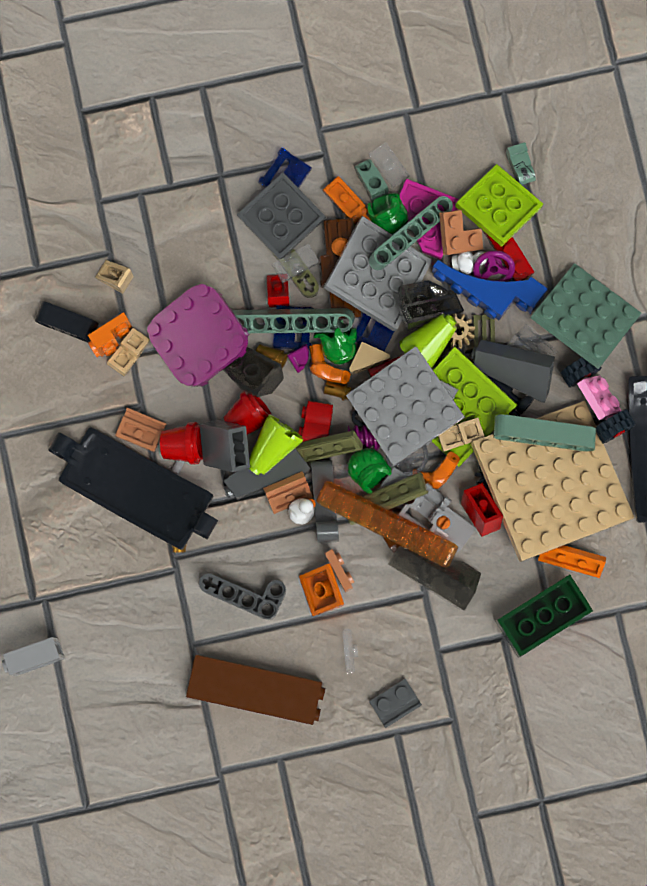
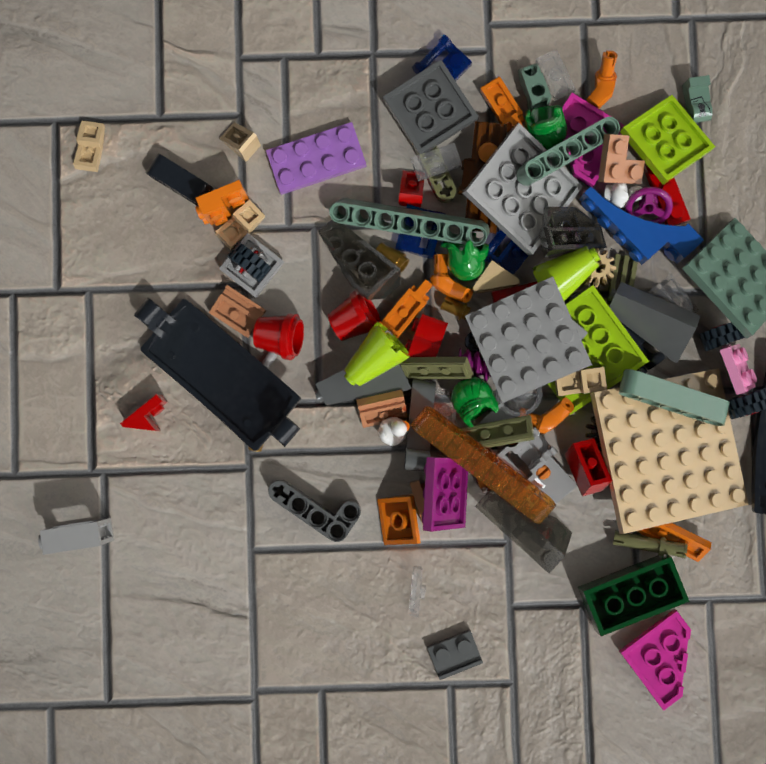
camera: 10 degrees right, 5 degrees up
(69, 543) = (141, 417): none -> red slope
(145, 386) = (251, 265): none -> light grey plate
(196, 268) = (316, 158): none -> medium lavender plate
(198, 335) = (316, 220): magenta plate -> none
(224, 445) = (323, 346): dark grey brick -> none
(255, 690) = (308, 614): reddish brown brick -> none
(294, 399) = (407, 309): none -> orange hinge
(299, 357) = (421, 265): magenta tile -> none
(358, 556) = (444, 495): none -> magenta plate
(434, 163) = (604, 80): none -> orange arm
(551, 569) = (651, 544): none -> olive pin
(581, 670) = (661, 658): none -> dark pink plate

